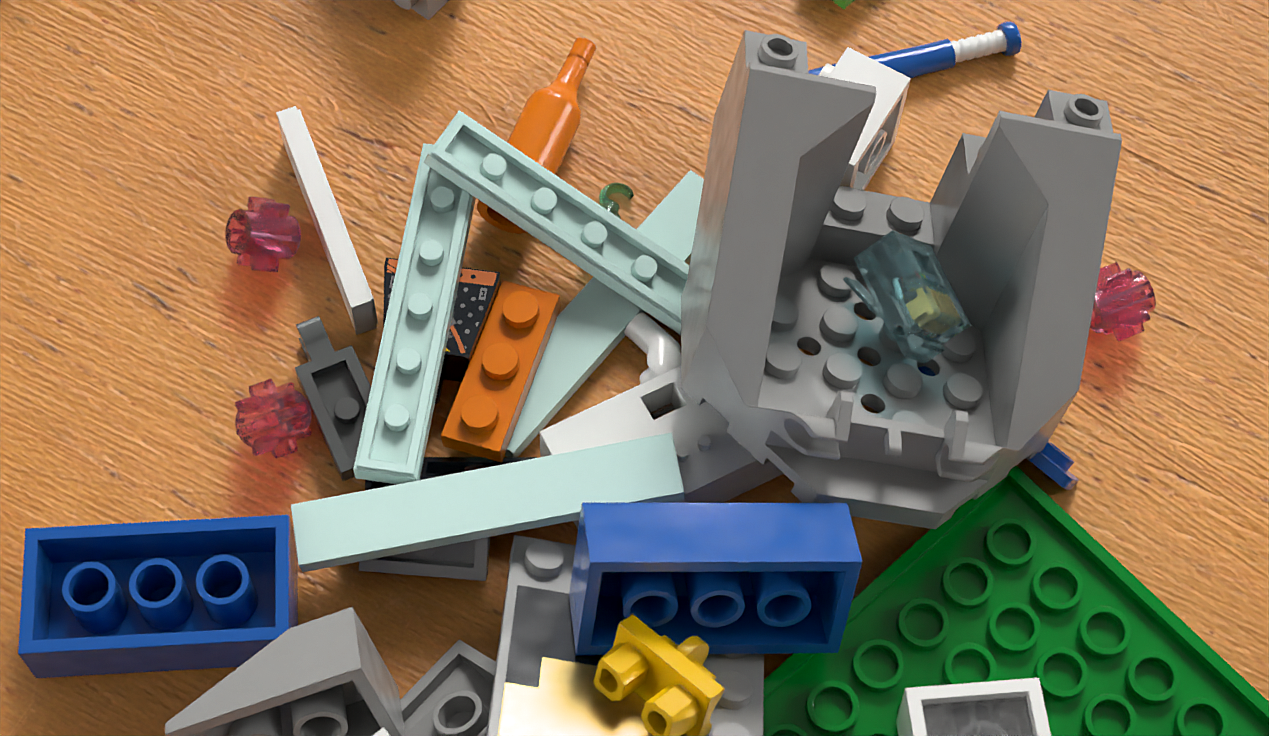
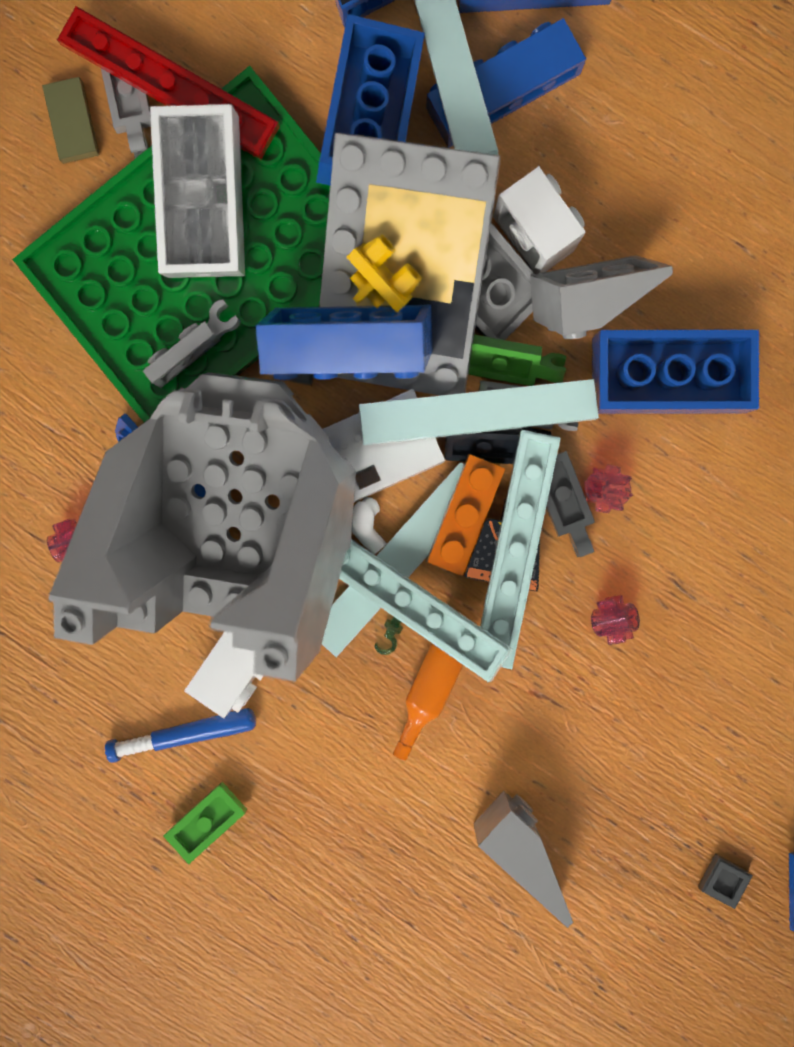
camera: 170 degrees left, 25 degrees up
(328, 220) = (574, 632): white tile -> none
(430, 609) = (514, 362): none -> bright green plate
(909, 295) = (203, 522): clear light blue piece -> none
(966, 590) = (192, 345): none -> light grey plate

